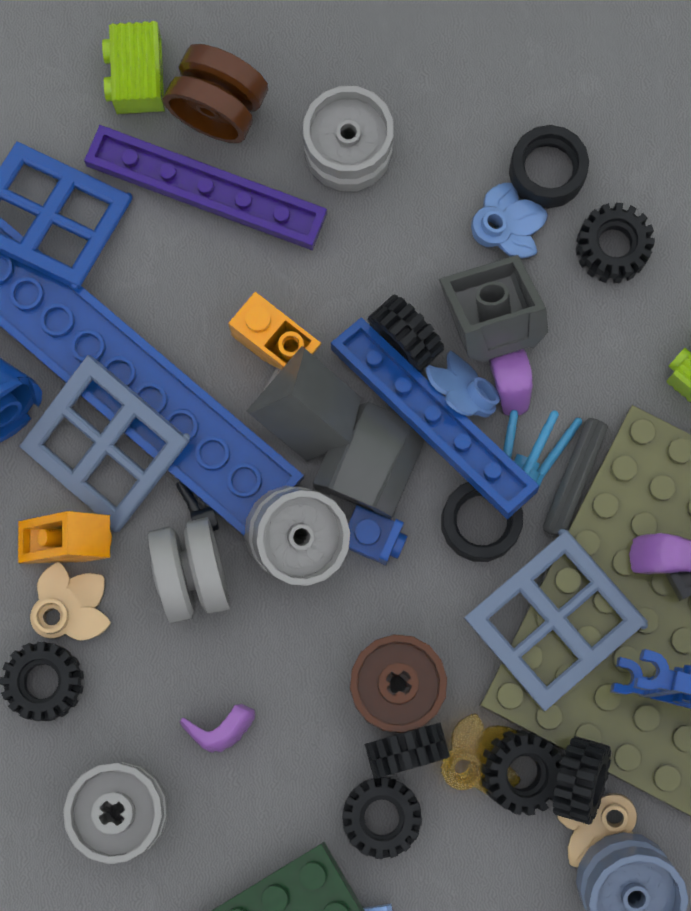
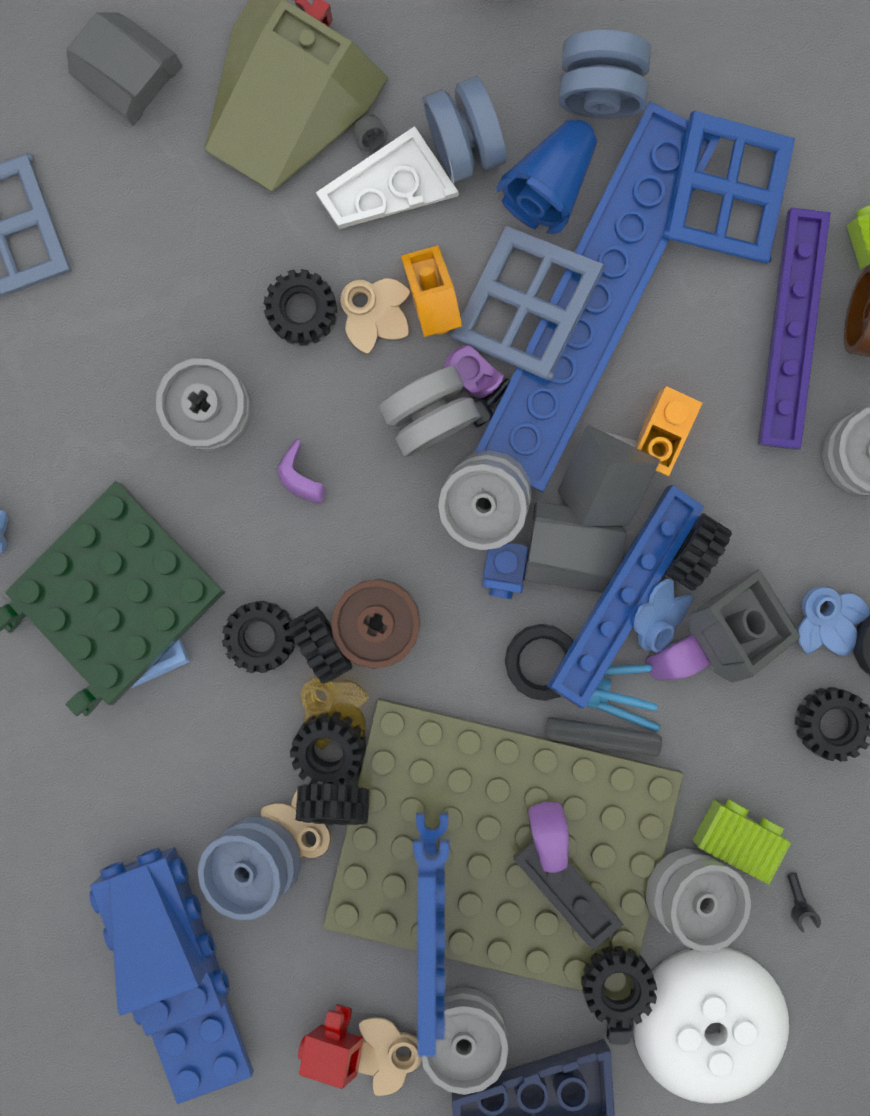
camera: 75 degrees right, 10 degrees up
(166, 510) = (477, 374): none -> medium lavender hair
(555, 620) = (468, 749): sand blue window -> none

